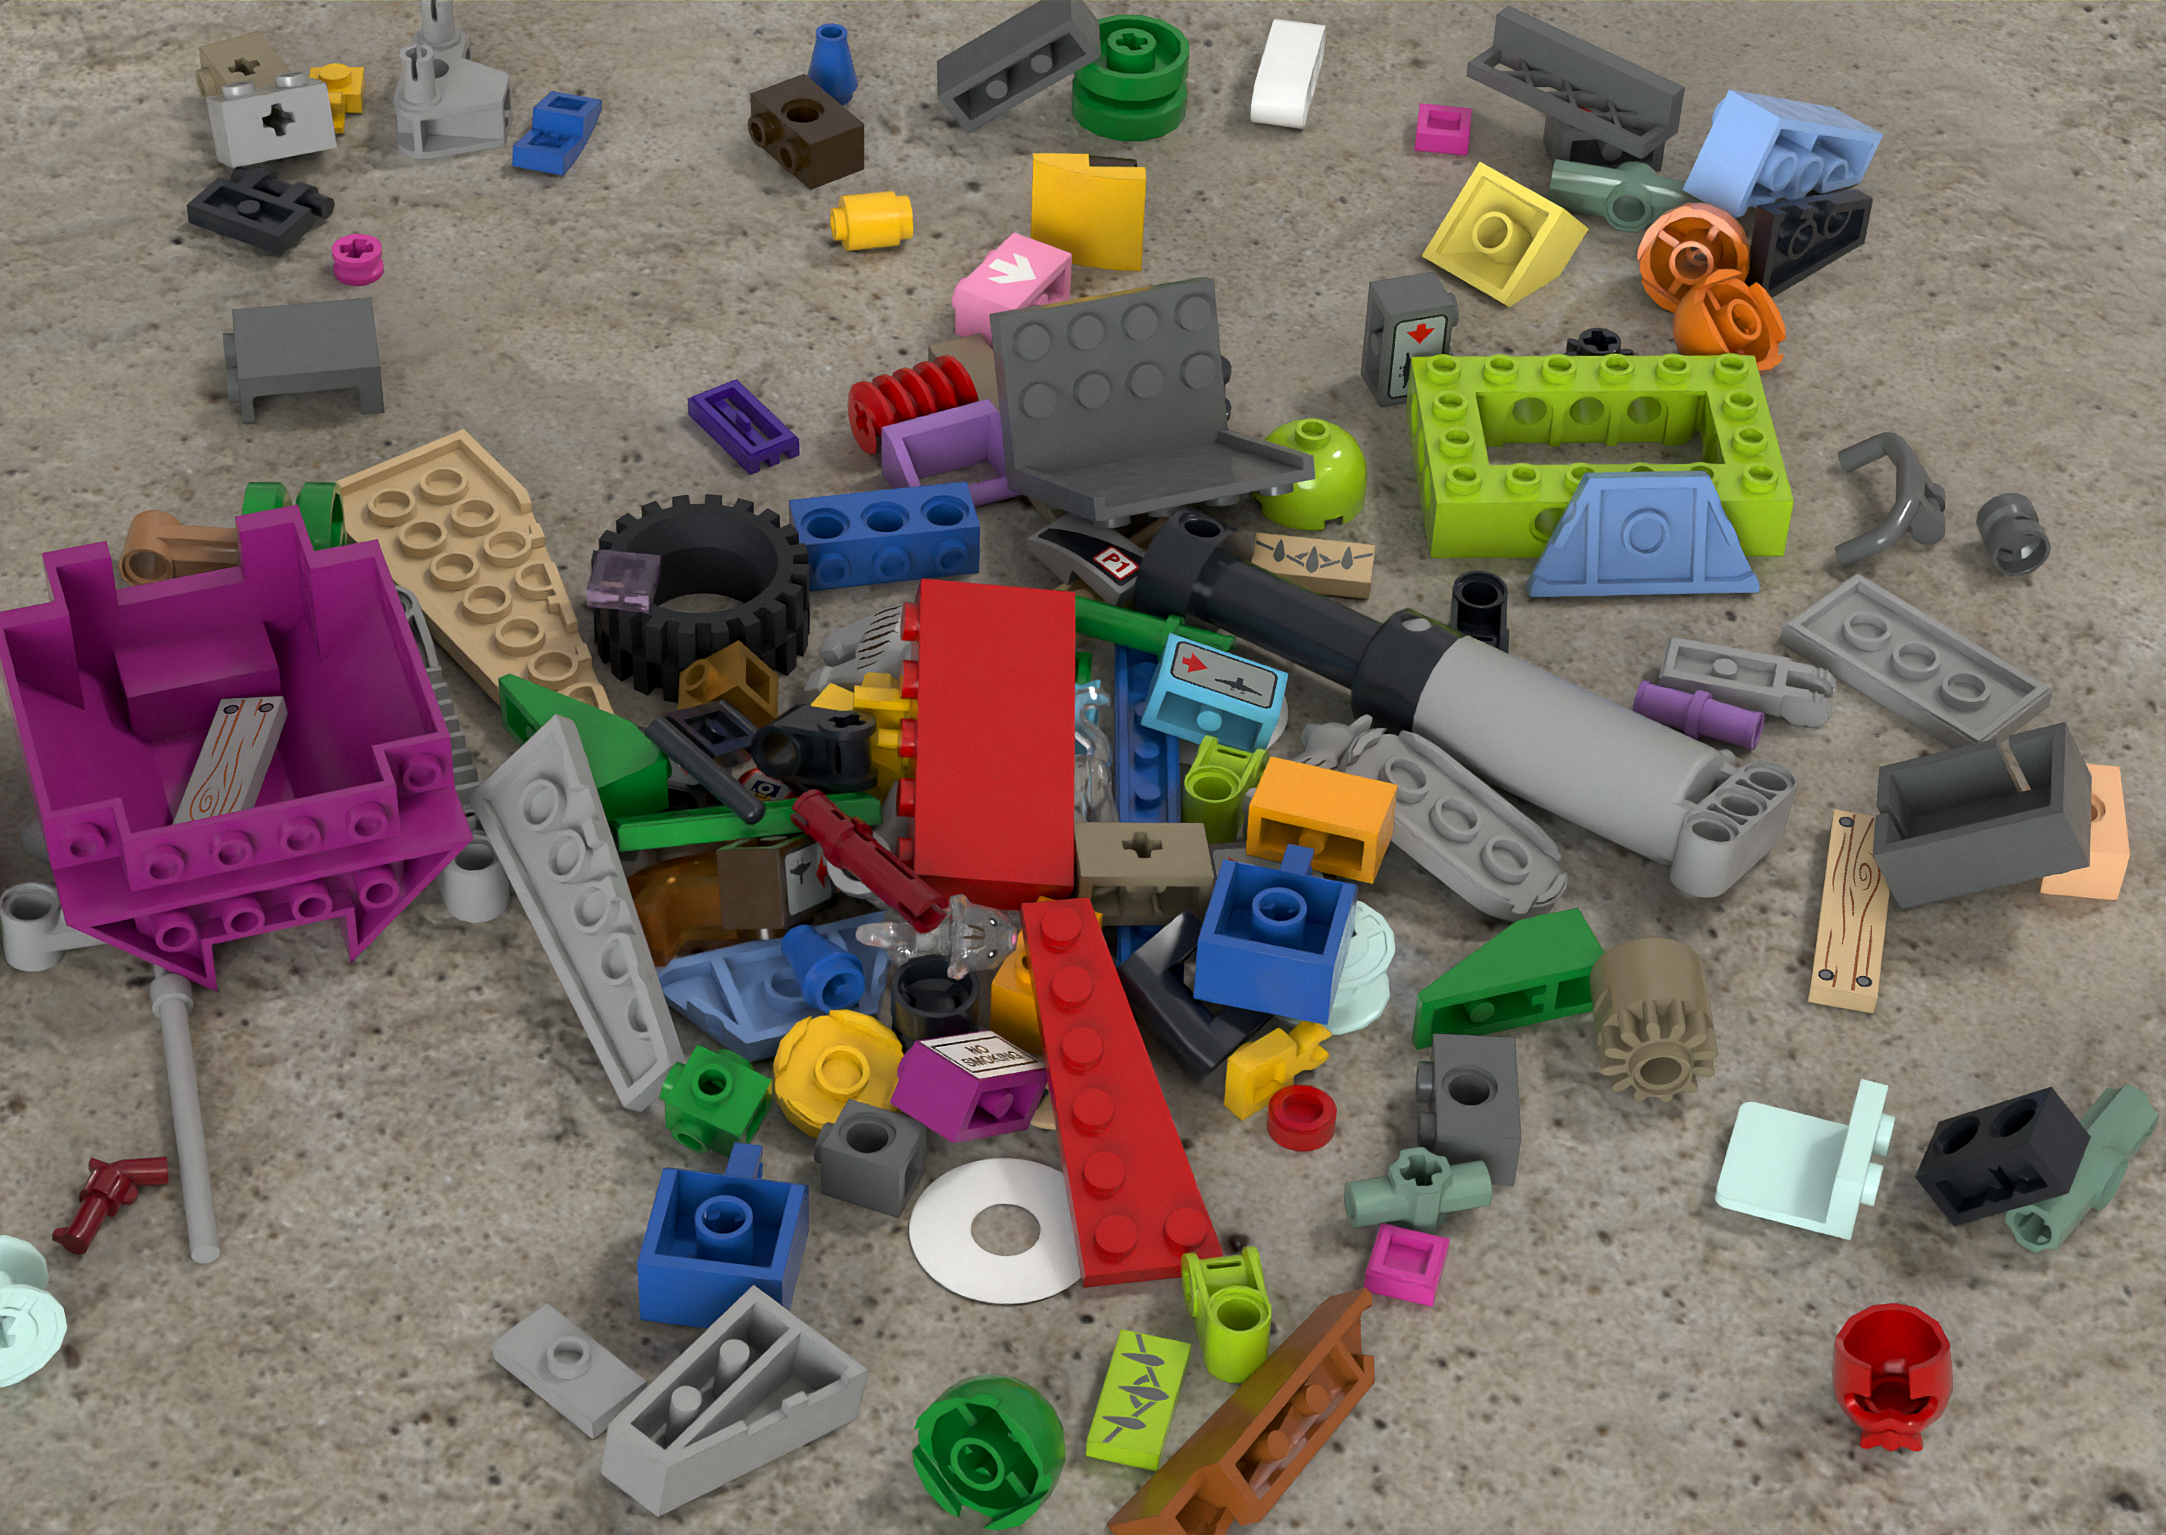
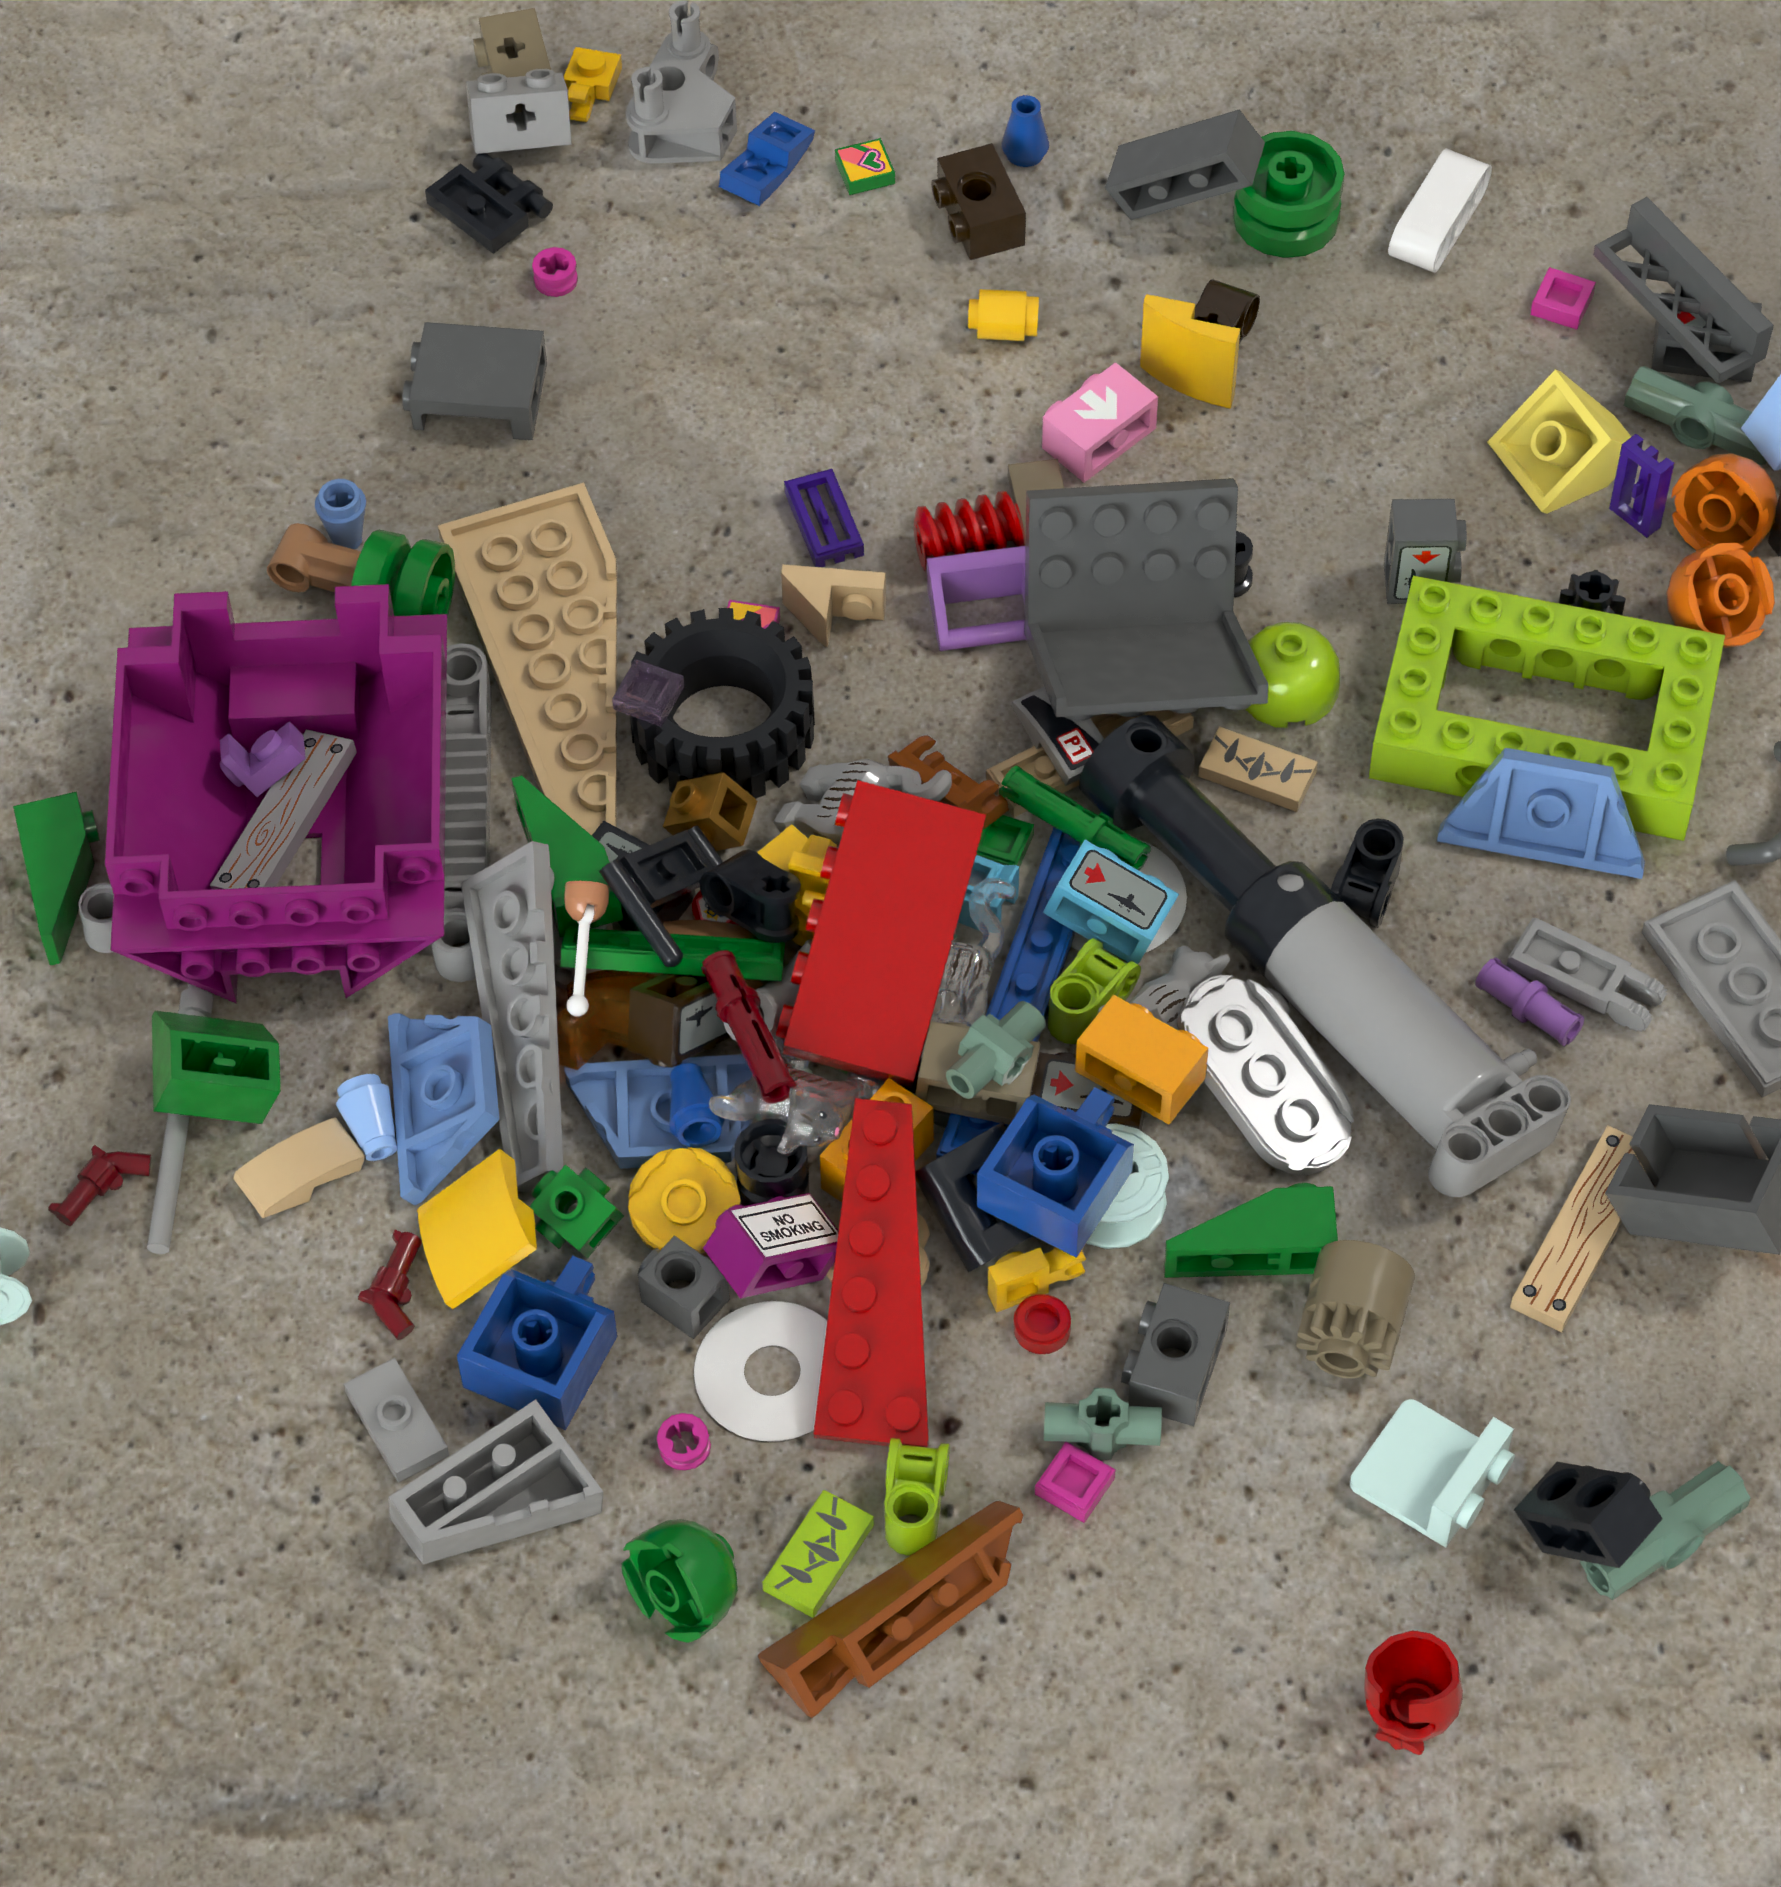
camera: 20 degrees right, 15 degrees up
(189, 730) = (269, 760): none -> medium lavender bracket
(194, 489) = (342, 512): none -> medium blue cone
(224, 1044) = (213, 1067): none -> green slope
(350, 1134) = (292, 1168): none -> tan slope
(425, 1062) = (368, 1113): none -> light blue cone
(510, 1021) = (440, 1095): none -> medium blue wing
(513, 1232) = (391, 1284): none -> dark red piece
(606, 1142) = (476, 1229): none -> yellow slope
(636, 771) = (586, 904): none -> hinge
(667, 125) = (865, 166): none -> tile
(783, 476) = (821, 593): none -> tan slope
(888, 535) = (877, 651): blue brick -> none
(931, 1299) = (675, 1425): none -> dark pink bush
(1163, 828) = (995, 1049): none -> sand green axle
(1614, 216) = (1648, 493): none -> dark purple tile

